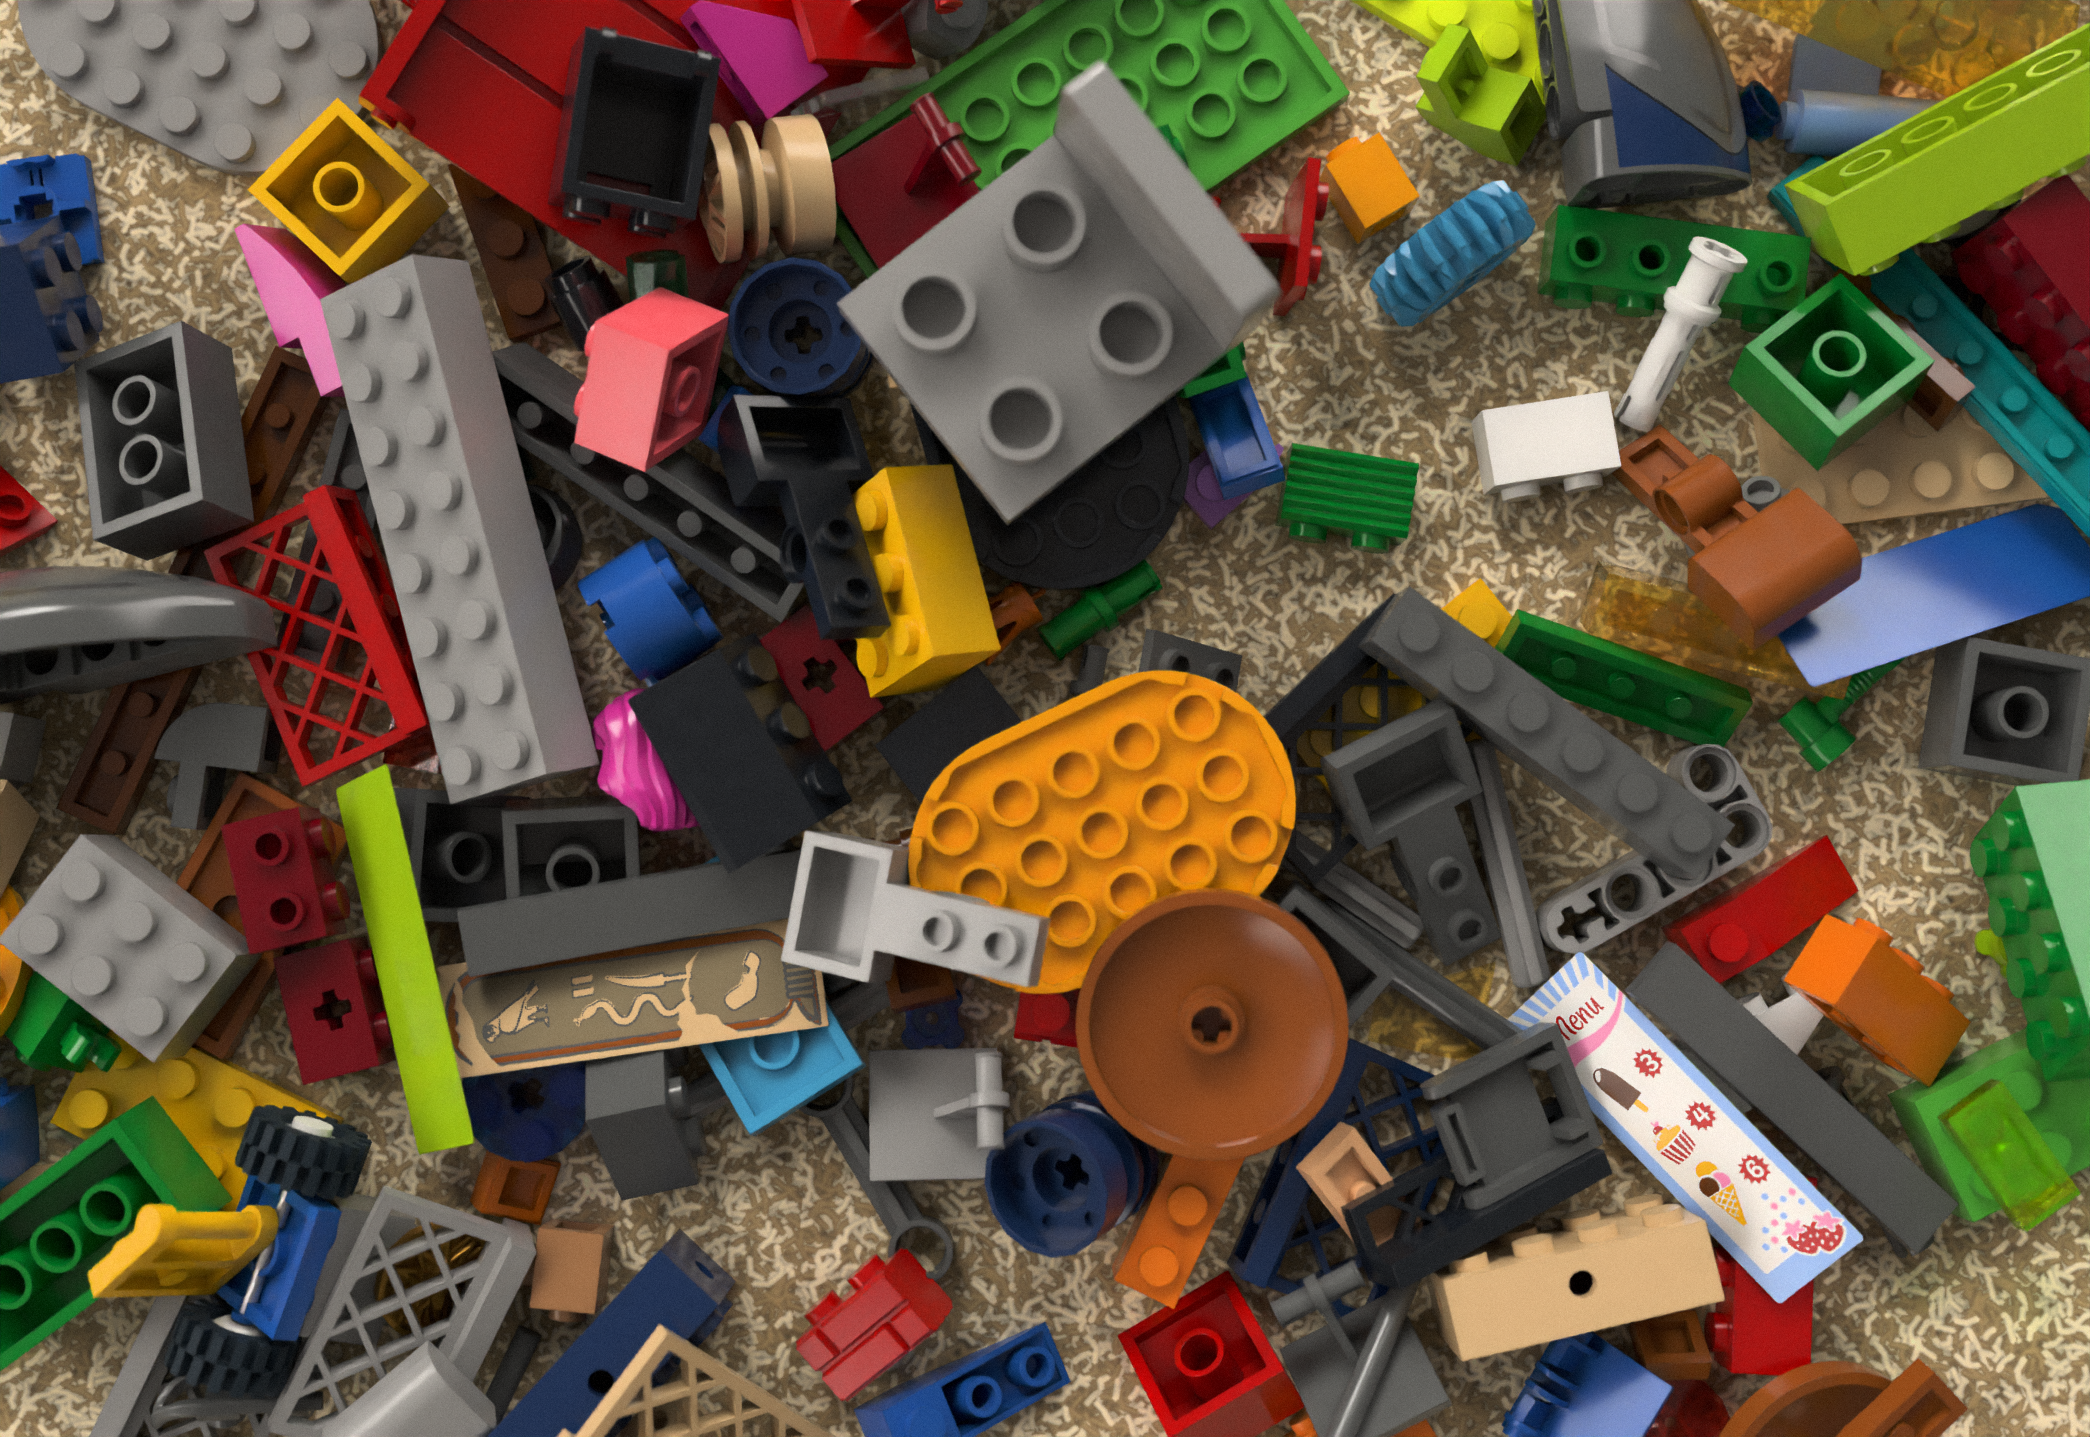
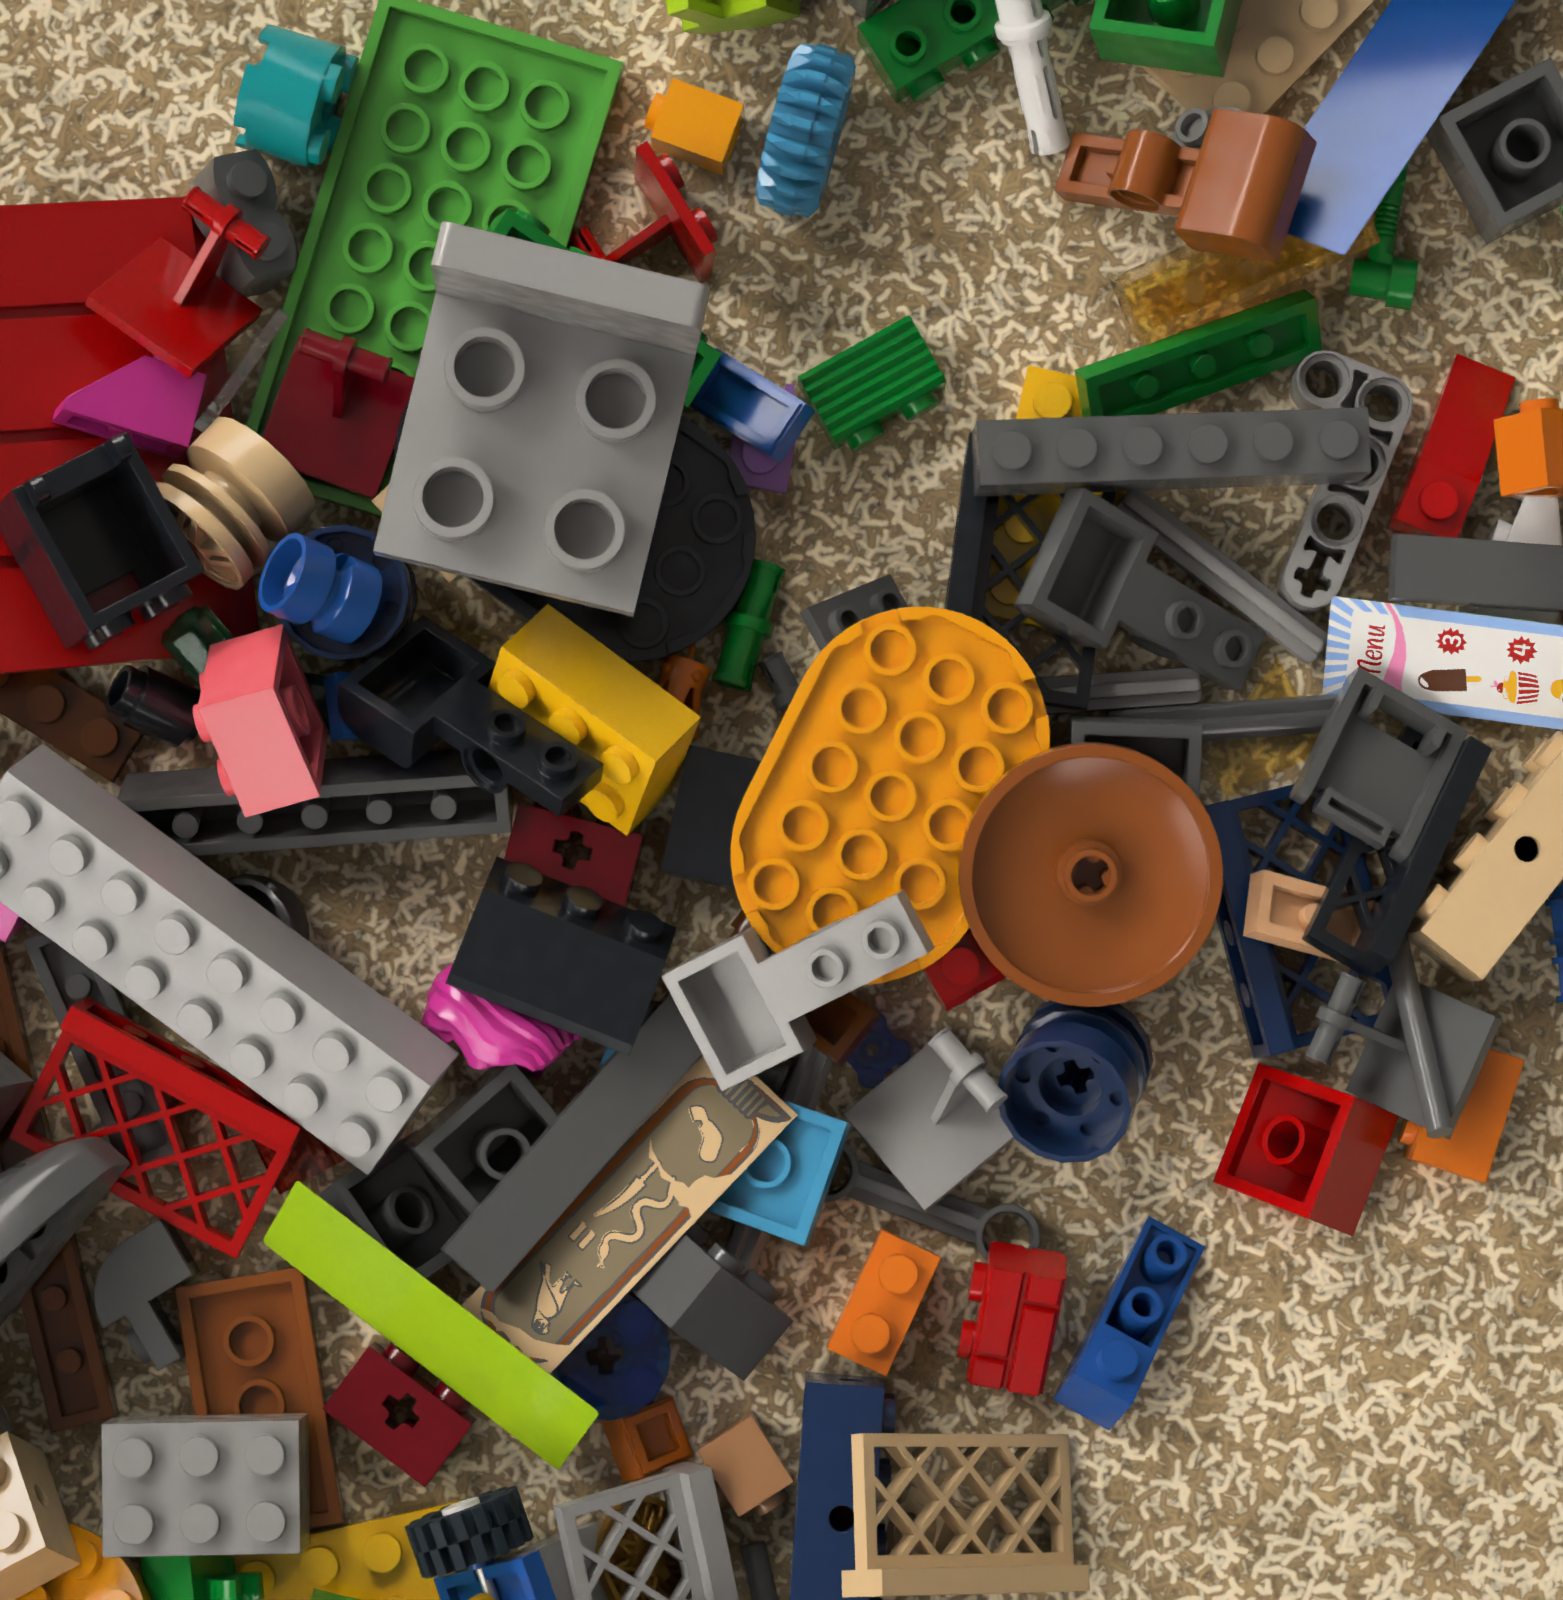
camera: 30 degrees left, 0 degrees up
(286, 879) = (284, 1337): dark red brick -> none
(651, 611) = (401, 904): blue brick -> none
(774, 299) = (315, 585): none -> blue wheel
(780, 1226) = (883, 1301): none -> orange brick
(1174, 1226) = (1186, 1052): orange brick -> none
(1546, 445) = (997, 220): white brick -> none

